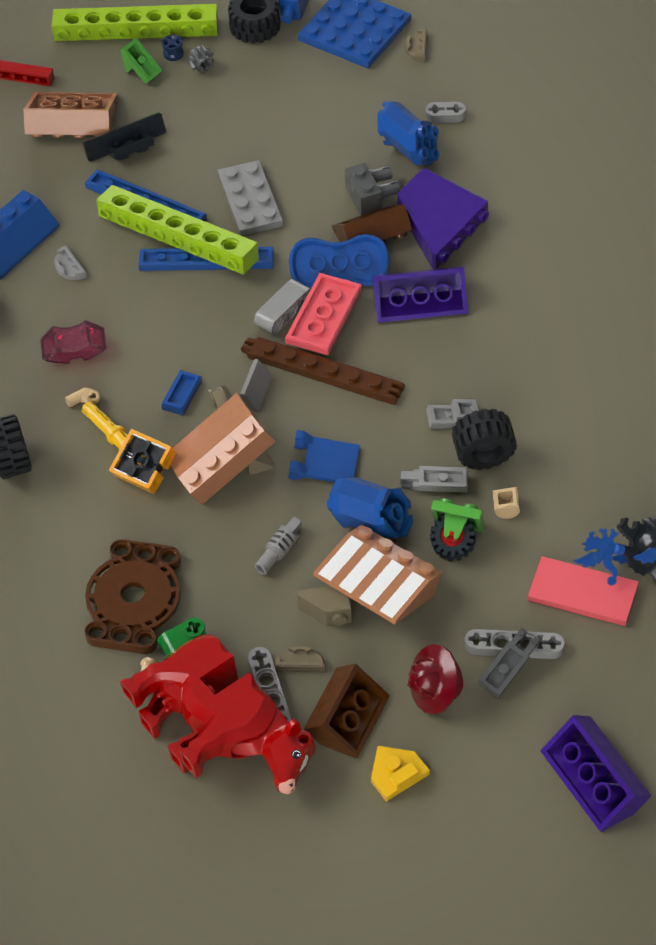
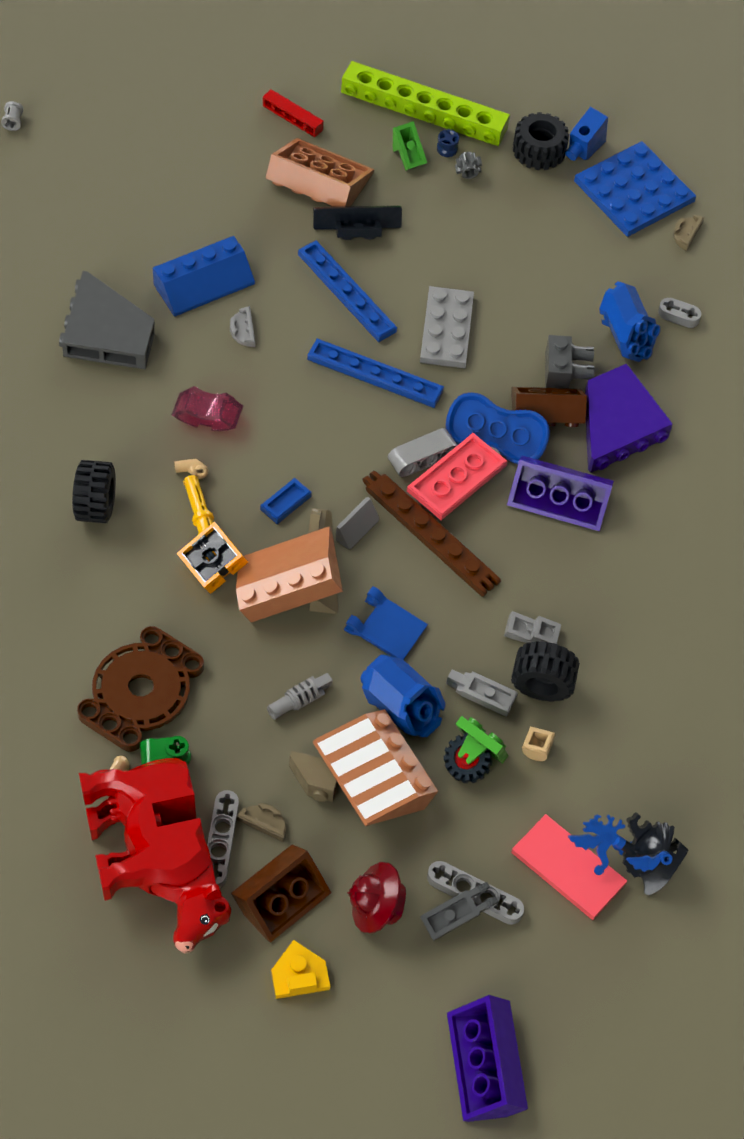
camera: 15 degrees right, 5 degrees up
(178, 229) = (360, 334): lime brick -> none

